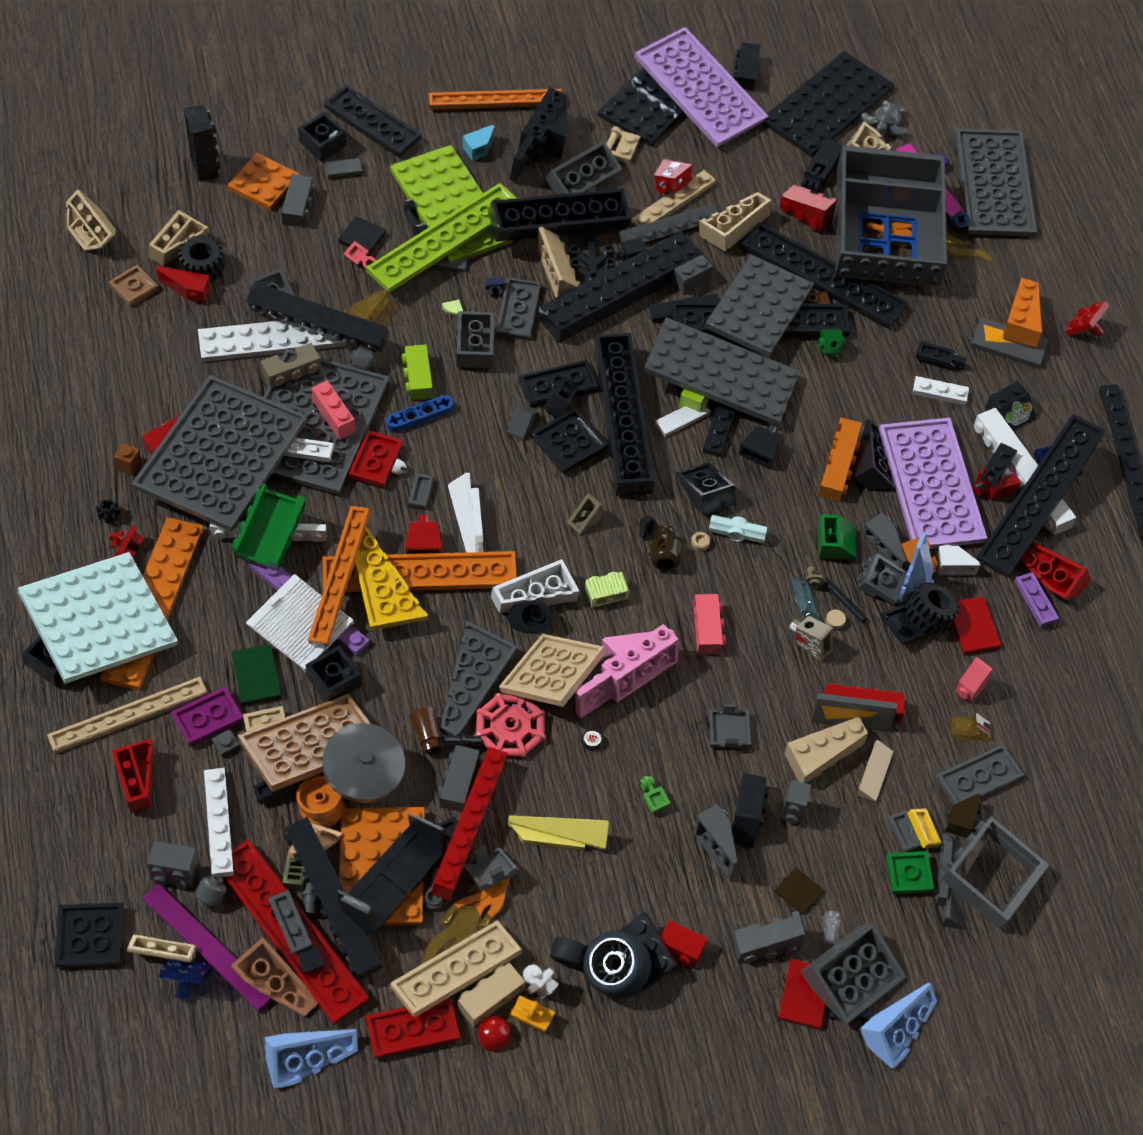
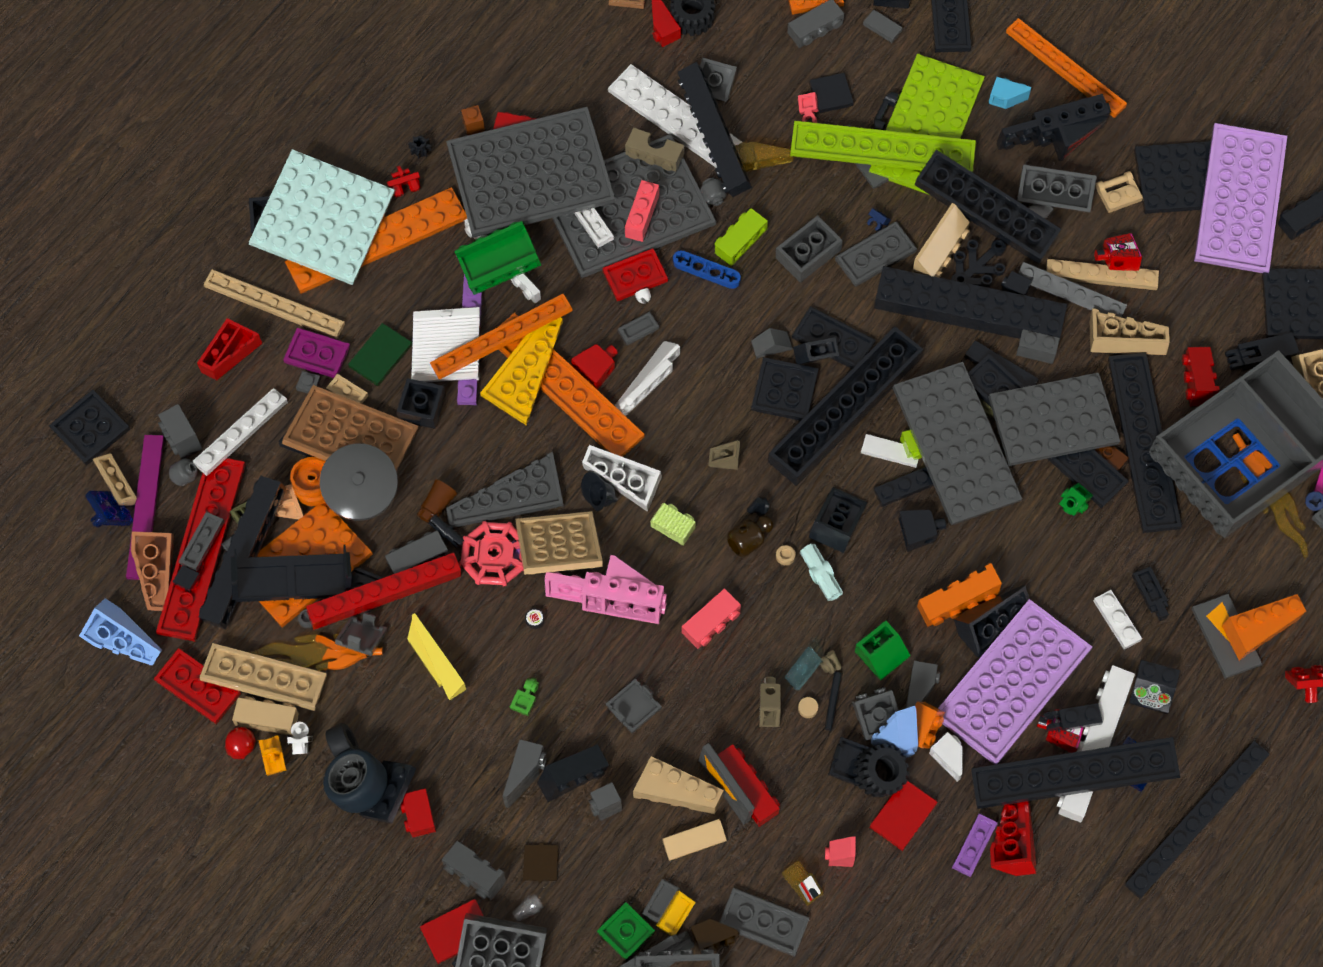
camera: 55 degrees right, 10 degrees up
(452, 307) = (828, 210): yellowish green tile -> none

